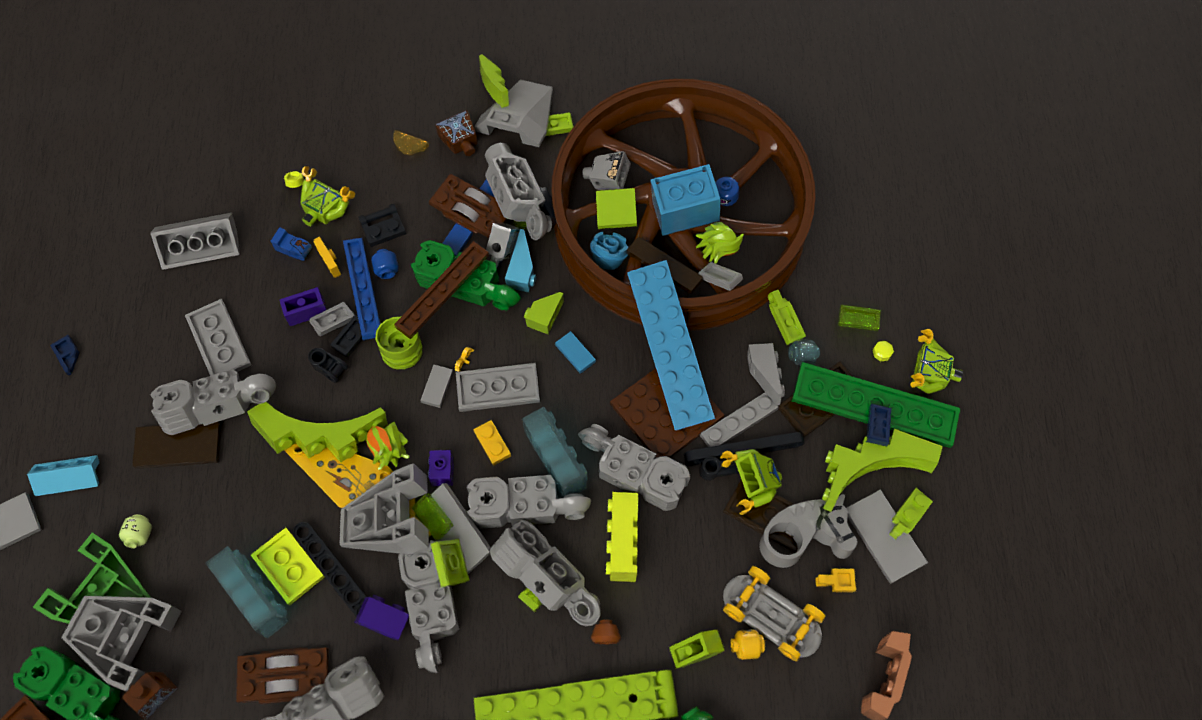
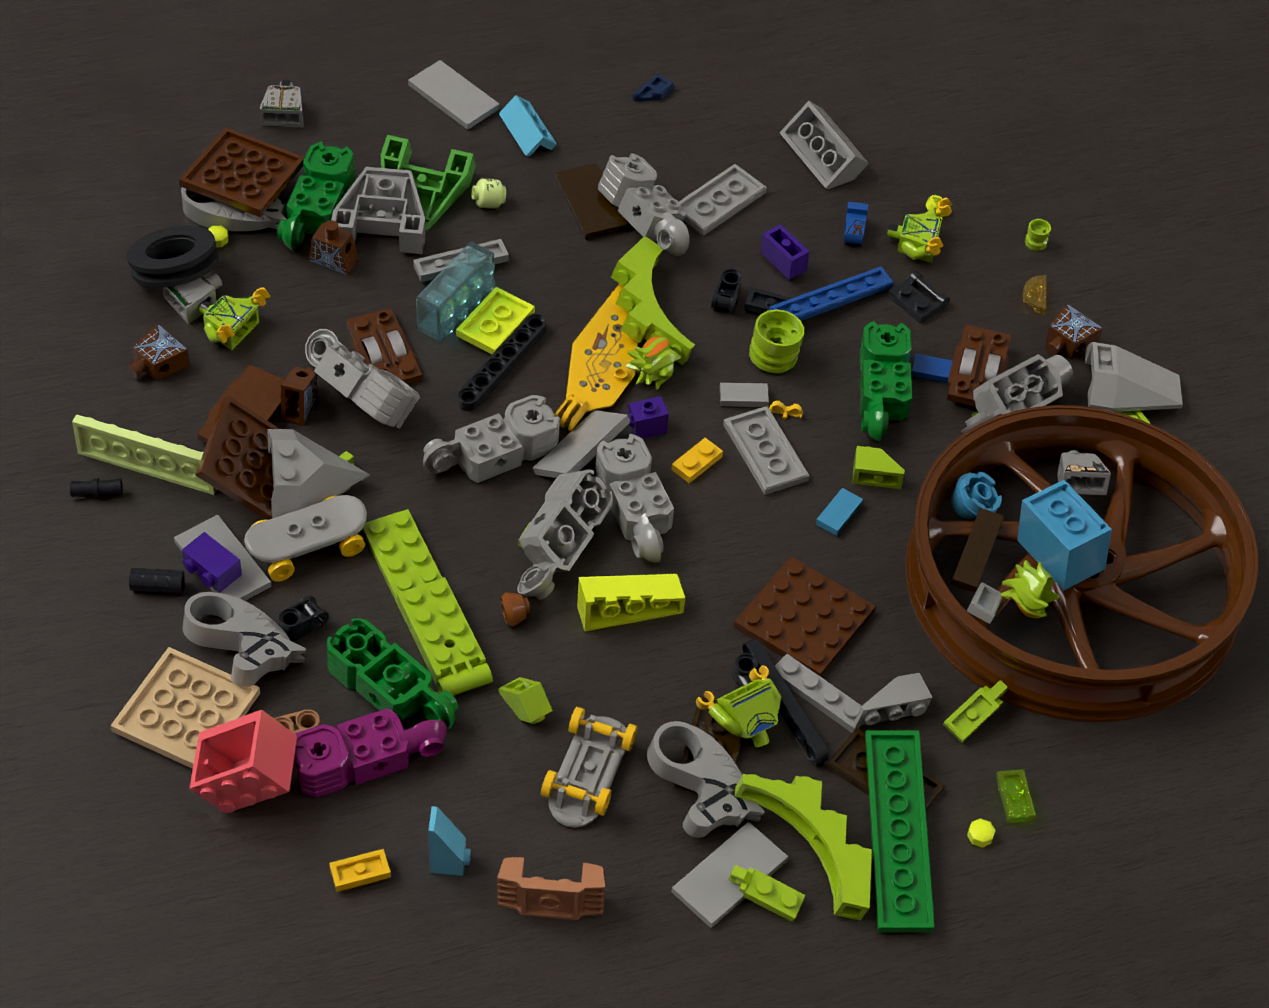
camera: 70 degrees right, 15 degrees down
(204, 582) = (431, 266): none -> light grey plate
(328, 257) = (854, 258): yellow plate -> none
(331, 319) = (781, 279): light grey plate -> none
(353, 120) = (1038, 234): none -> lime wheel
(381, 515) = (571, 373): light grey wedge -> none
(381, 617) = (465, 403): dark purple brick -> none
(385, 264) = (869, 308): blue head -> none
(432, 516) = (589, 421): clear neon green plate -> none
(441, 290) = (850, 350): reddish brown plate -> none
(449, 562) = (541, 440): lime tile -> none
(493, 81) = (1153, 339): lime slope -> none
(504, 236) = (944, 402): light grey torso -> none
(520, 270) = (926, 432): medium azure slope -> none
(554, 452) = (702, 509): clear light blue brick -> none
(616, 208) = (1027, 482): lime tile -> none
(637, 468) = (715, 596): light grey brick -> none
(670, 345) = (872, 573): dark azure plate -> none
(728, 190) = (1102, 581): blue head -> none
(748, 644) = (546, 748): yellow head -> none
(803, 351) = (938, 740): clear light blue head -> none
(840, 579) = (655, 830): yellow plate -> none
(879, 425) = (867, 827): dark blue plate -> none
(933, 366) = (978, 888): torso -> none

